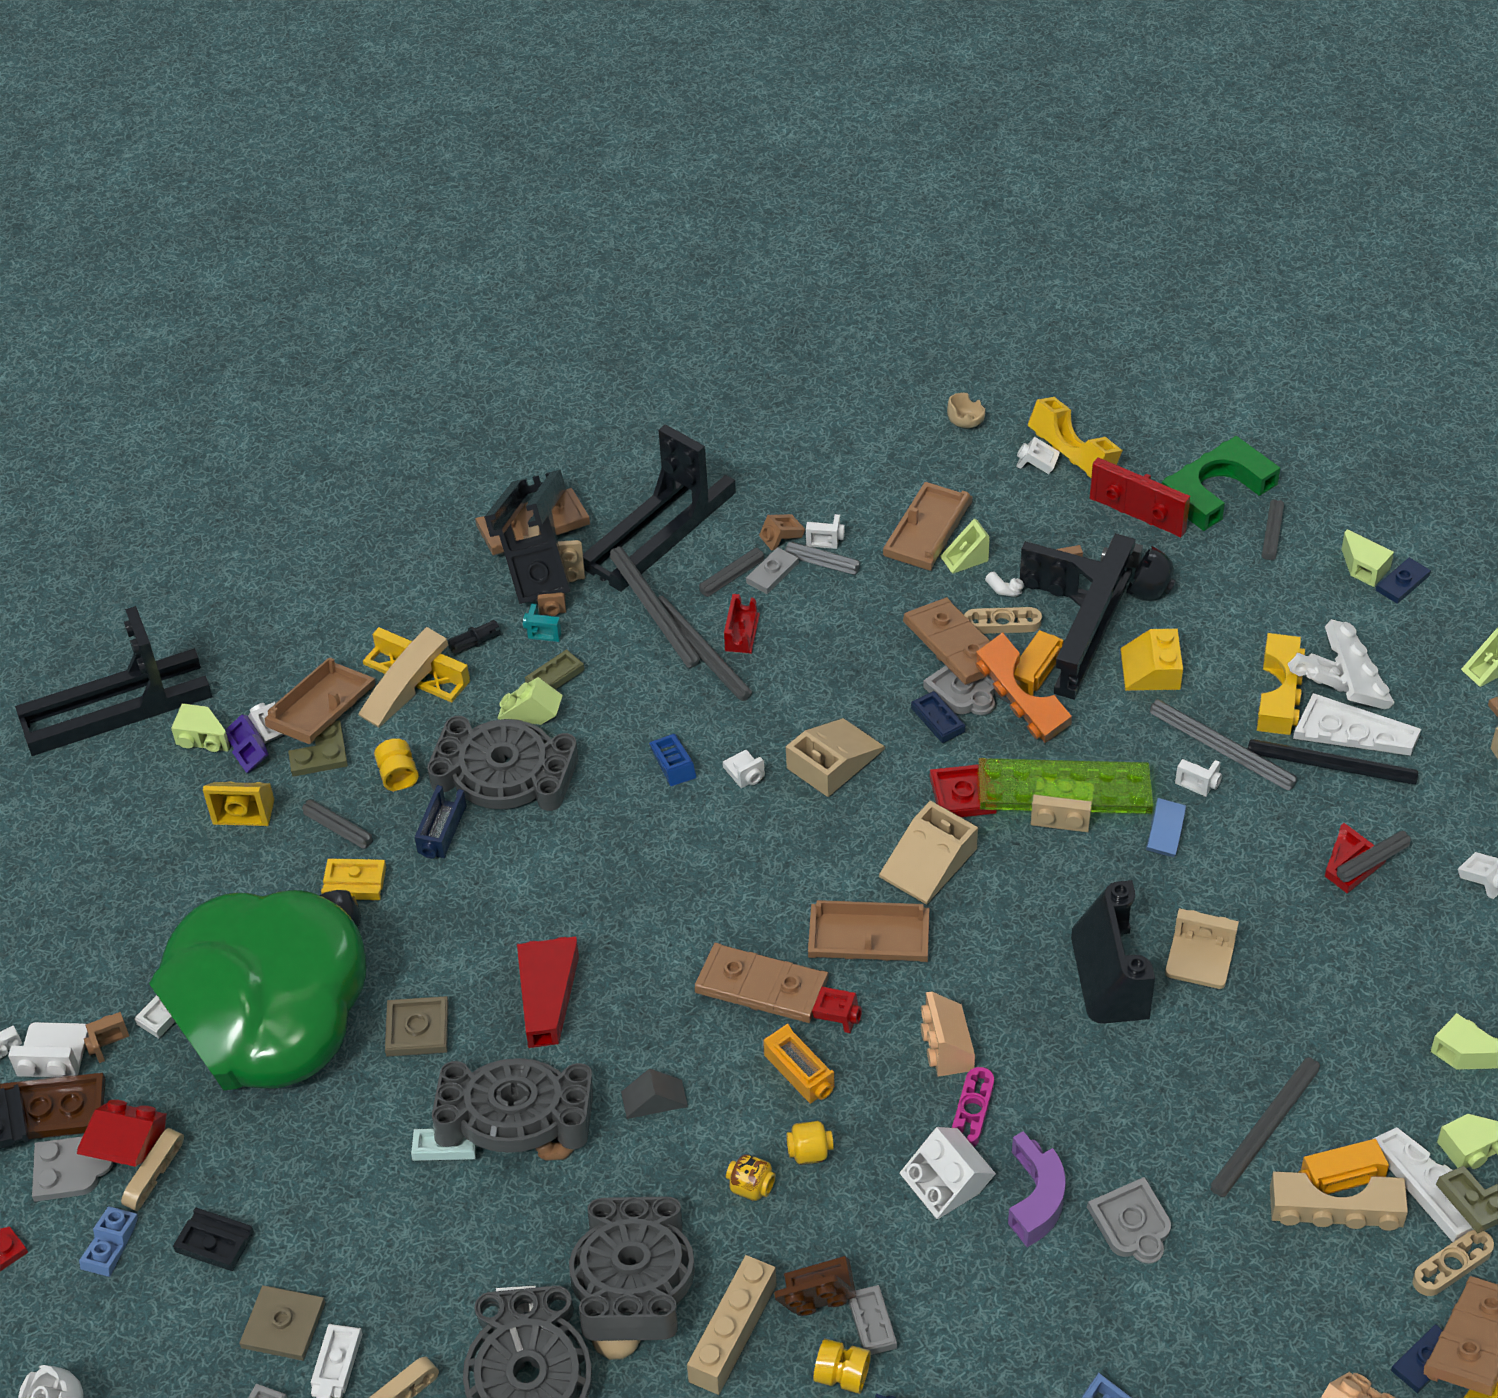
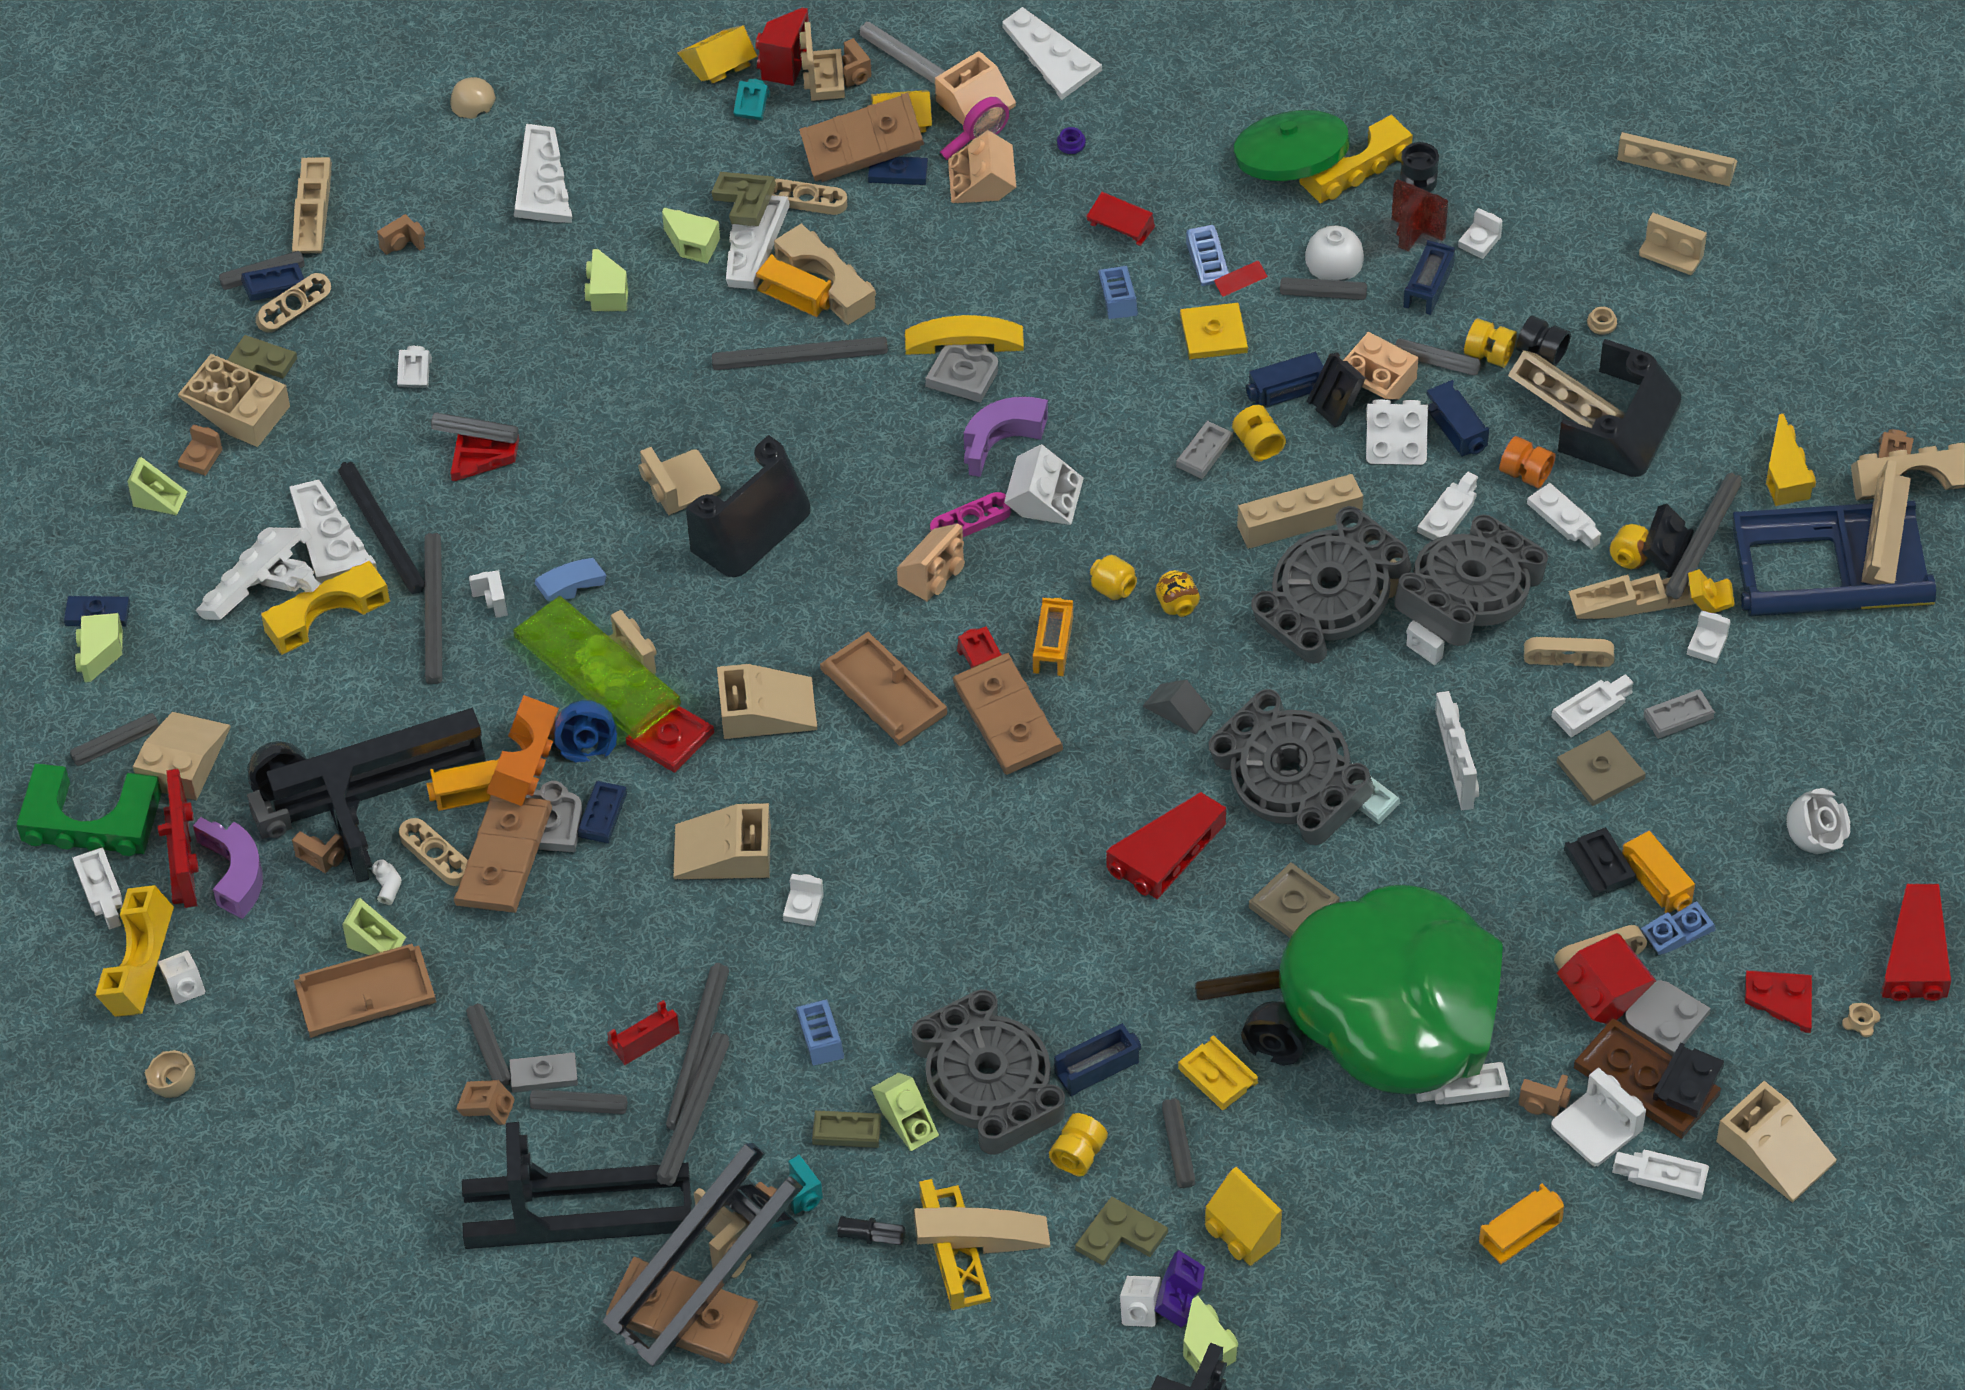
camera: 135 degrees left, 5 degrees up
(49, 943) = (1522, 1224): none -> light orange window
(157, 1264) = (1659, 872): none -> light orange window
(318, 701) = (1076, 1269): medium nougat container -> none
(375, 1207) = (1457, 750): none -> white wing
(393, 953) = (1237, 984): none -> dark brown axle
(621, 710) = (824, 1049): none -> medium blue slope
(678, 772) = (854, 940): blue slope -> none
(817, 1287) = (1225, 475): reddish brown bracket -> none
(825, 534) = (459, 1057): white bracket -> none
(1015, 740) = (582, 726): none -> blue cylinder
(1093, 525) = (244, 879): none -> medium lavender arch
(1152, 458) = (99, 885): none -> white hinge
(1153, 661) = (383, 702): yellow slope -> none
(1169, 1252) = (963, 331): none -> yellow slope
(1222, 547) = (184, 745): none -> tan slope

